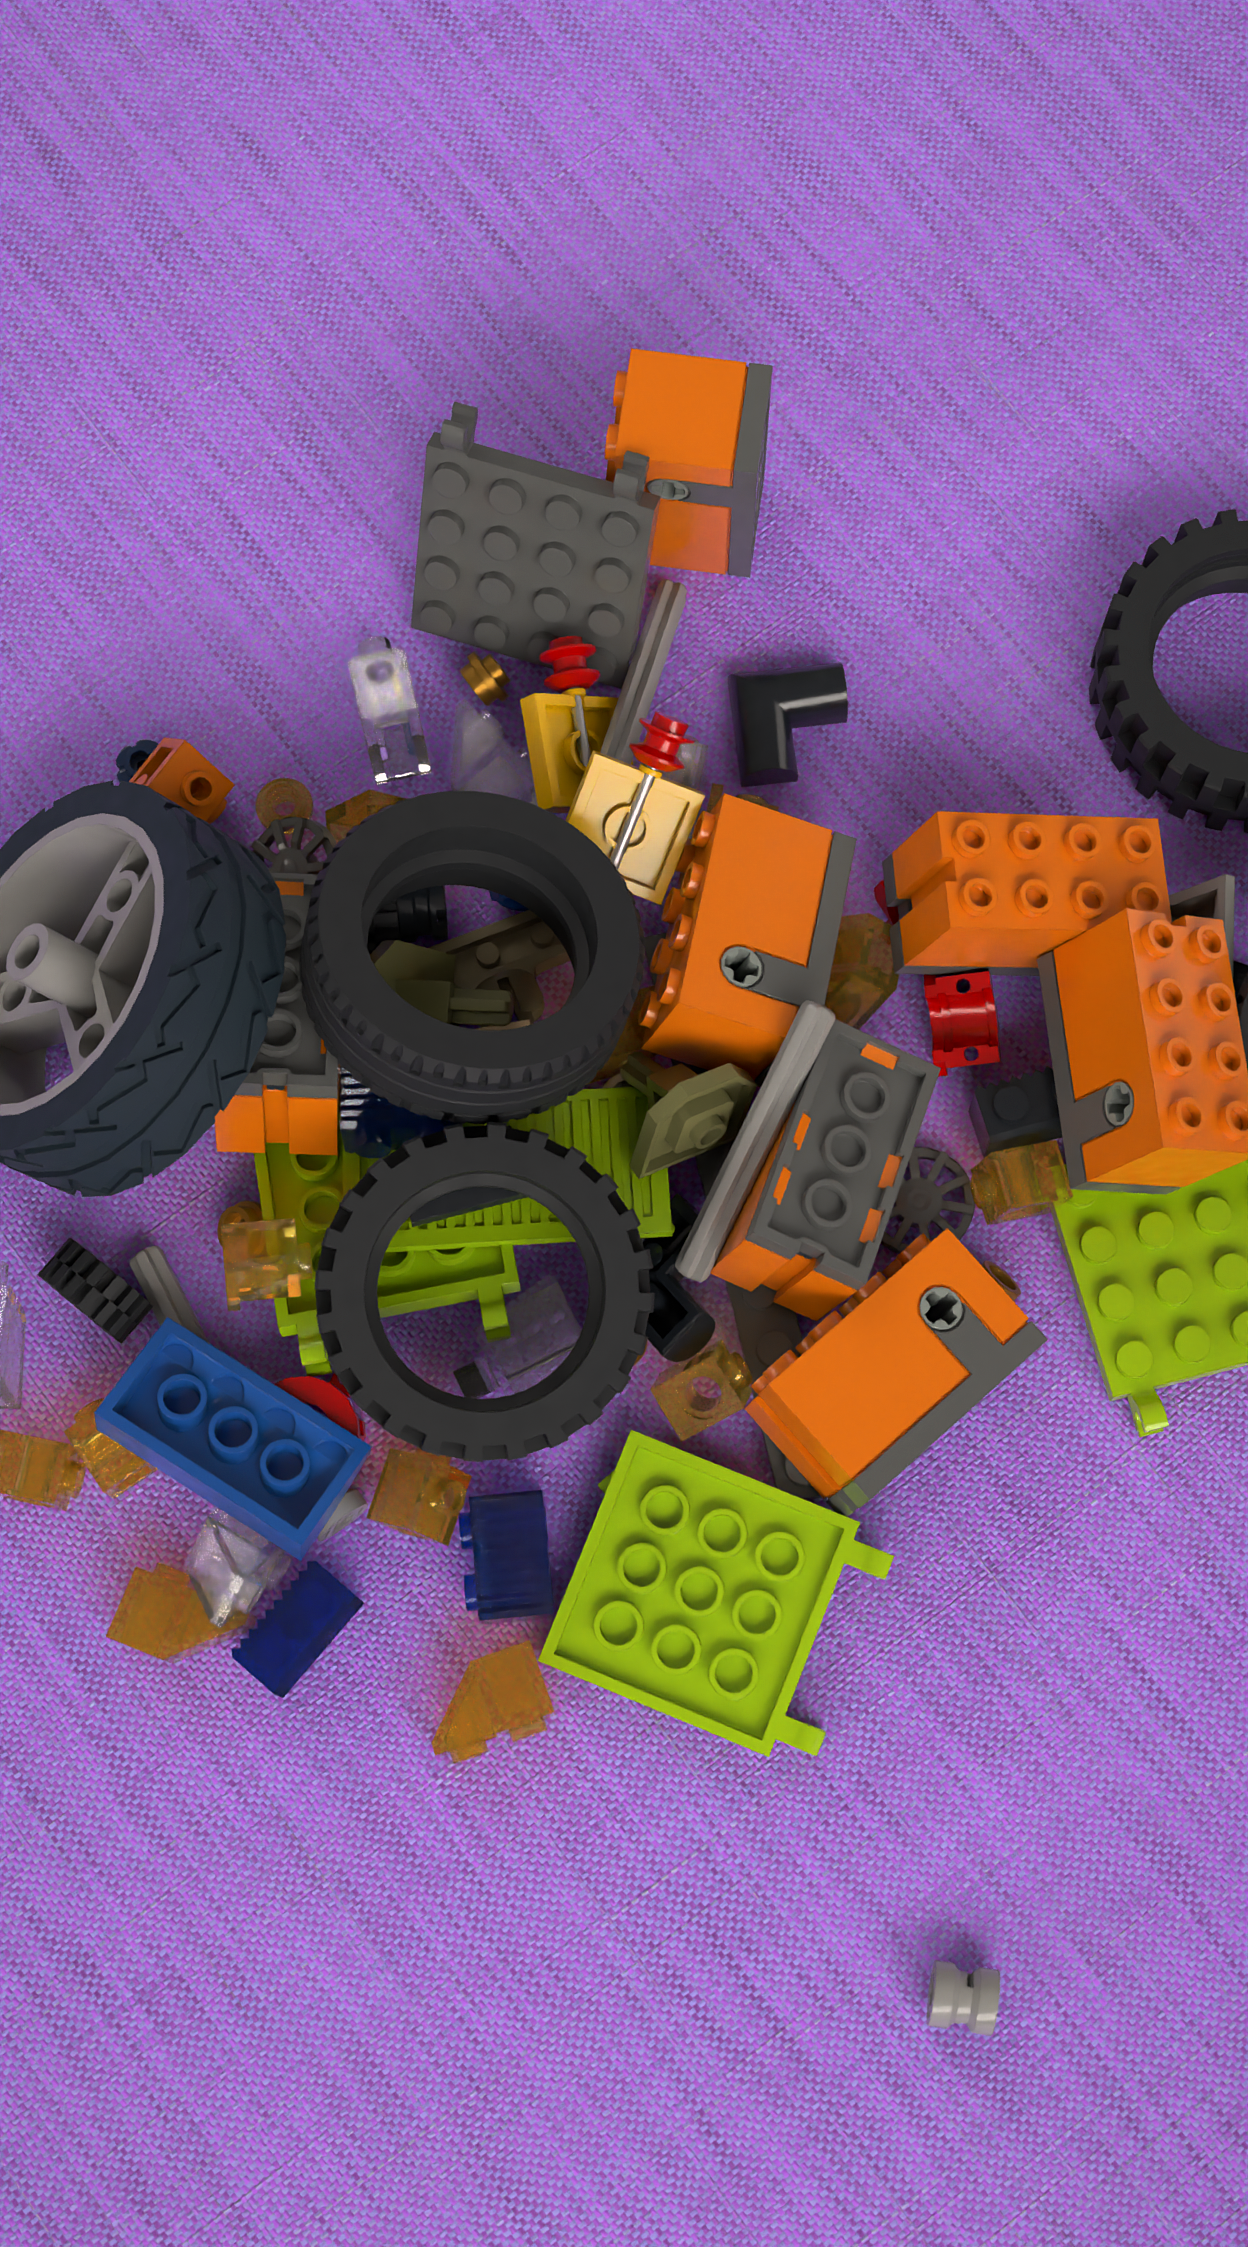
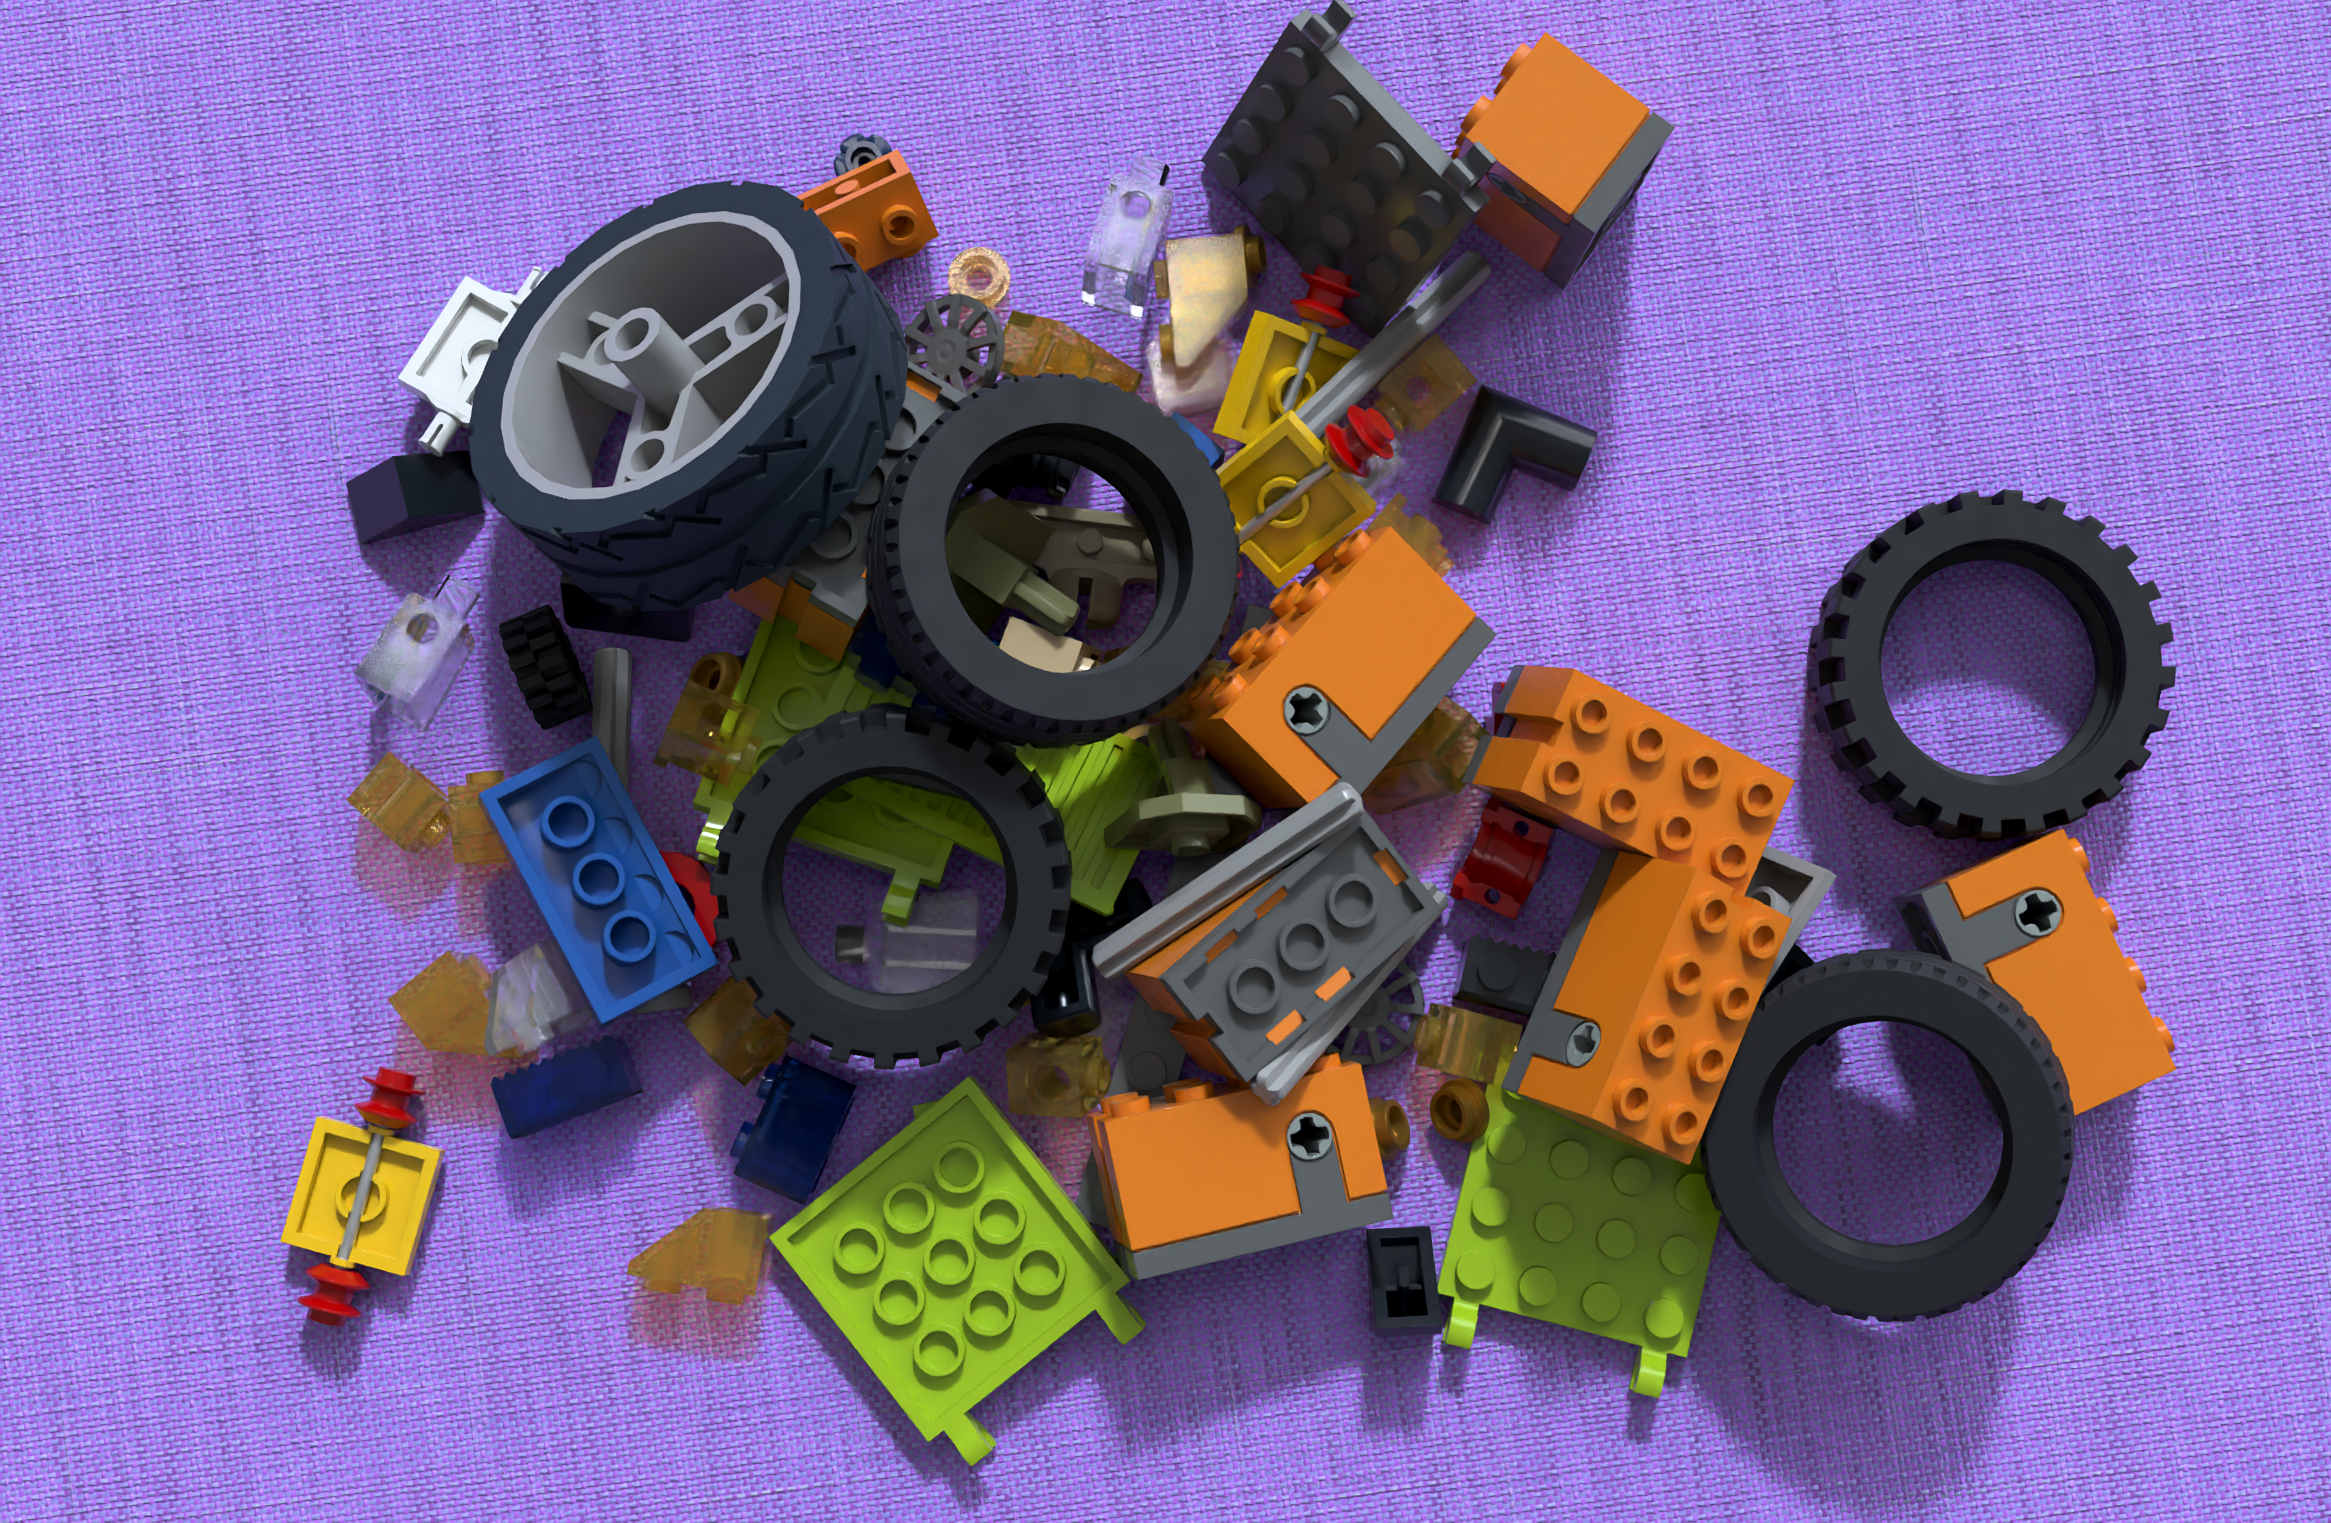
camera: 25 degrees right, 10 degrees up
(138, 1212) = (586, 613): none -> black slope
(171, 1822) = (362, 1196): none -> yellow plate
(474, 711) = (1205, 297): none -> clear yellow slope
(689, 681) = (1439, 369): none -> clear yellow brick
(893, 1253) = (1289, 1066): none -> light grey axle
(1037, 1249) = (1460, 1110): none -> pearl gold plate
(1081, 1404) = (1402, 1282): none -> black slope

